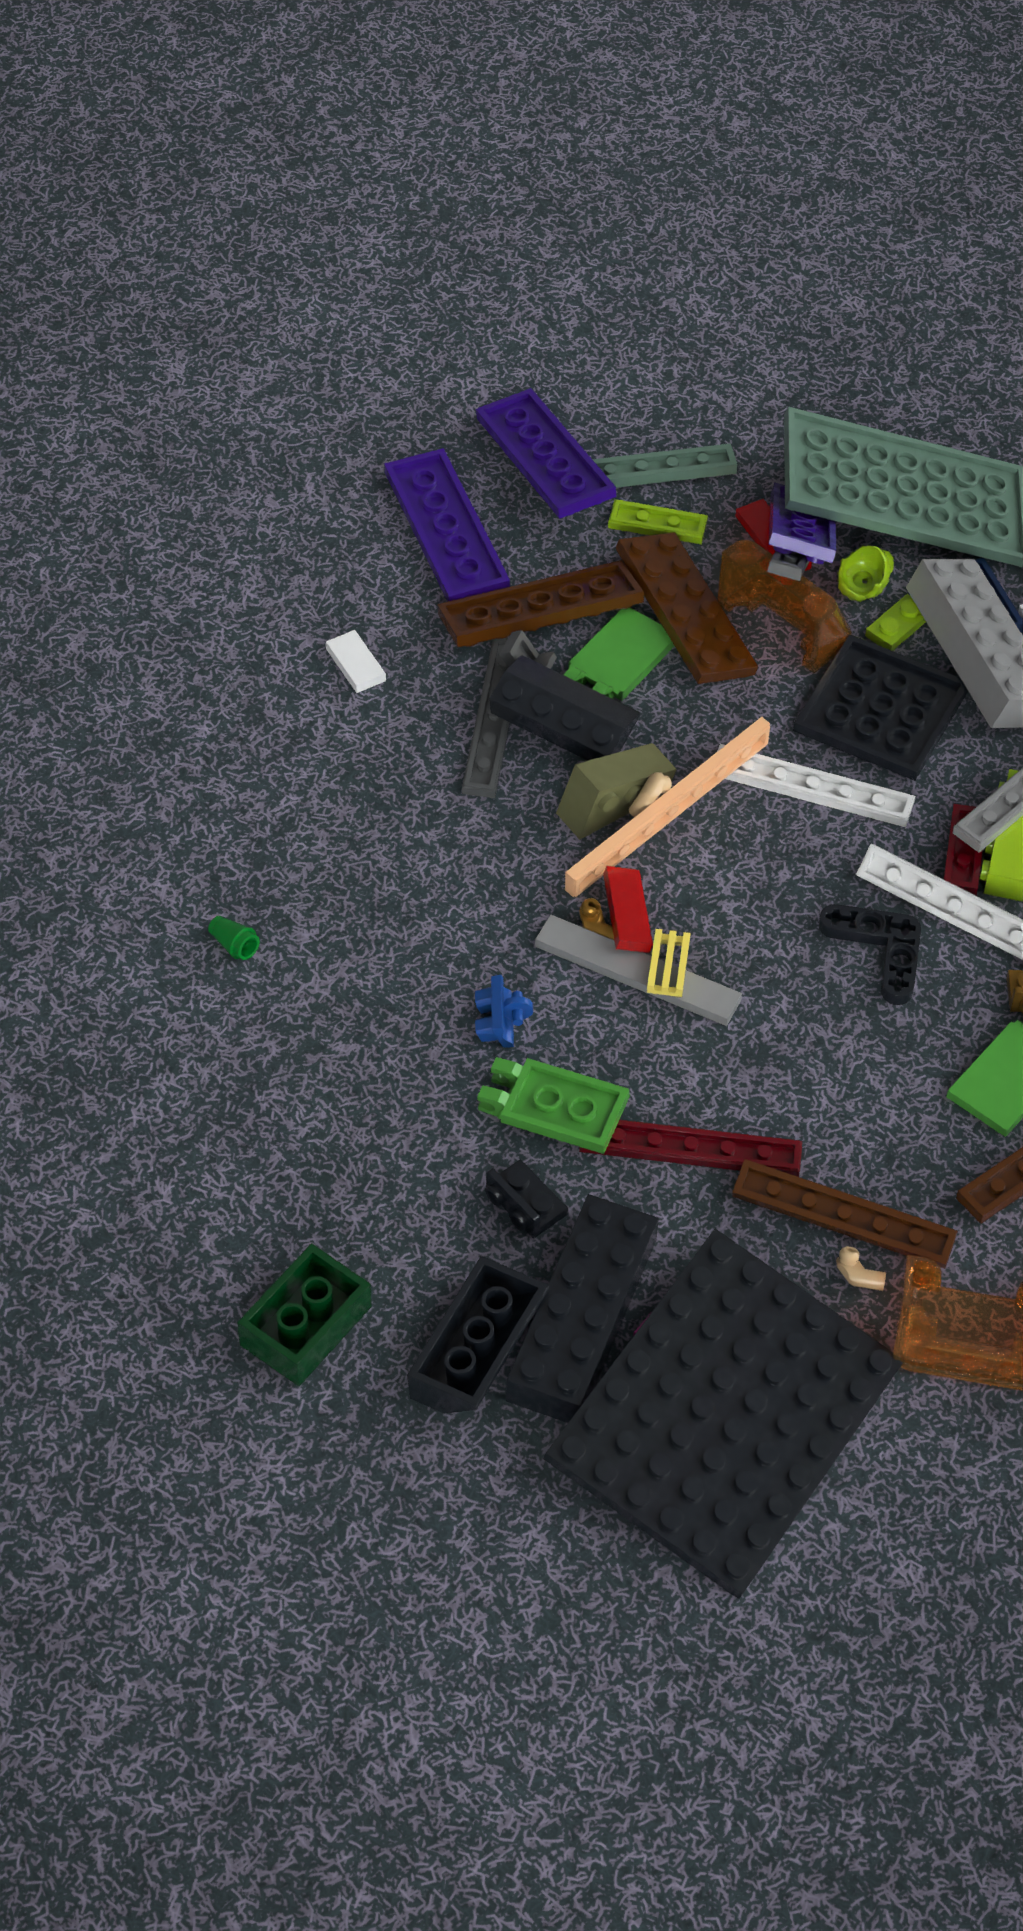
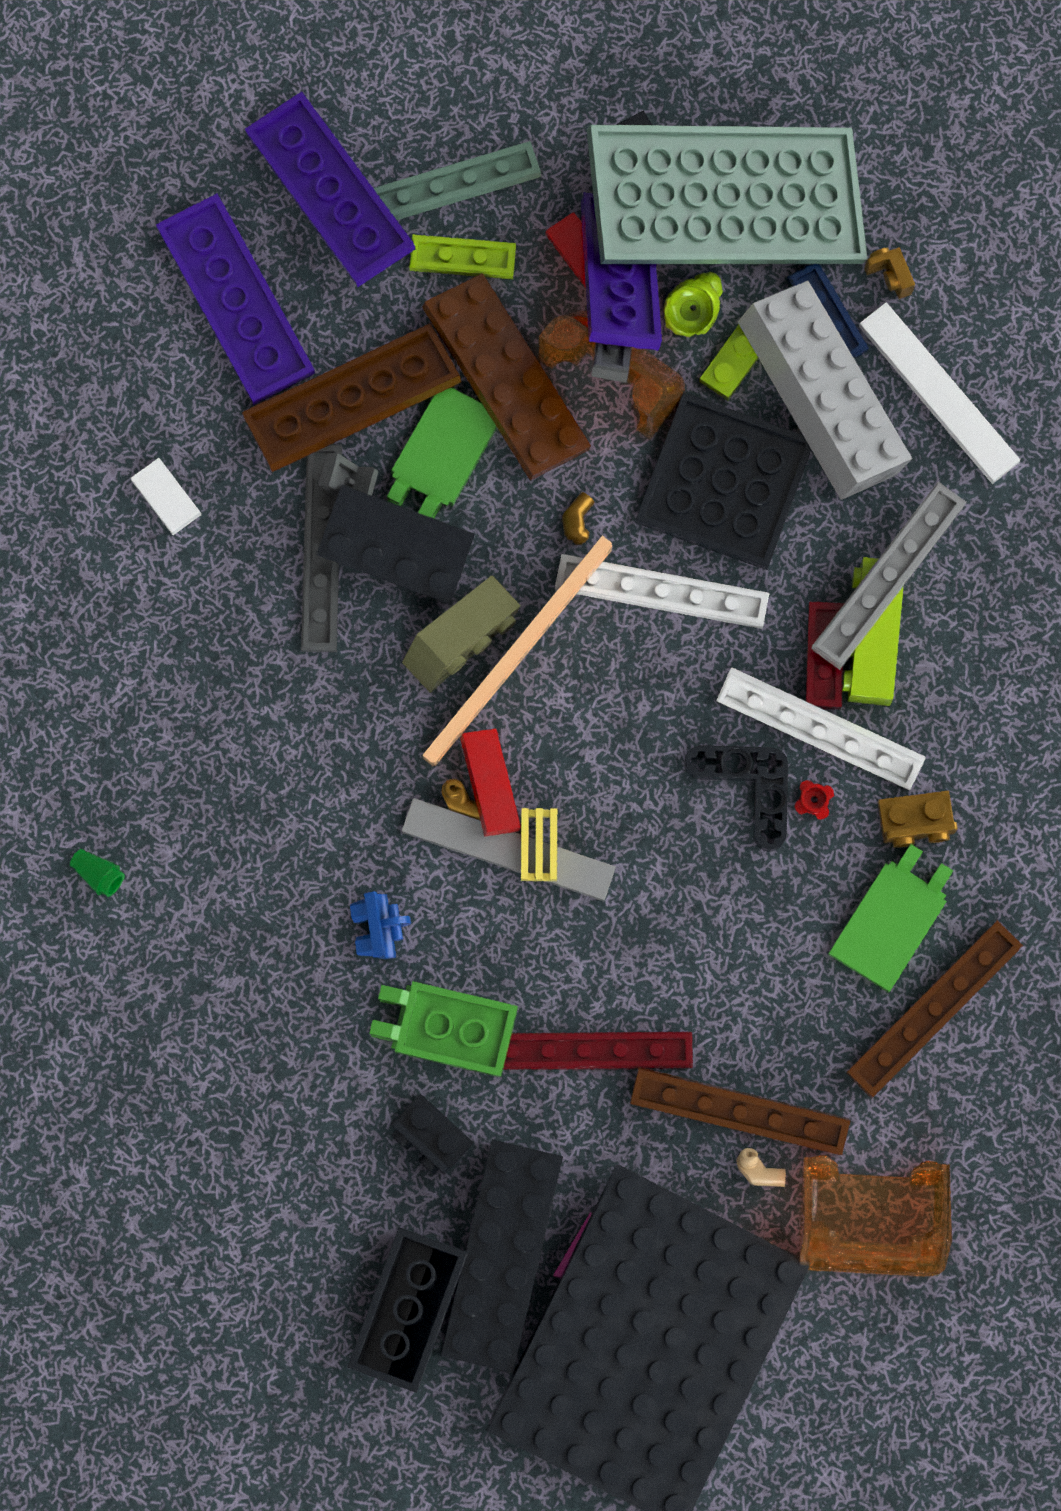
camera: 10 degrees left, 25 degrees up
(304, 1314) = (239, 1305): dark green brick -> none
(655, 784) = (498, 645): tan arm -> none
(735, 719) = (573, 519): none -> pearl gold arm
(947, 956) = (810, 790): none -> red plate

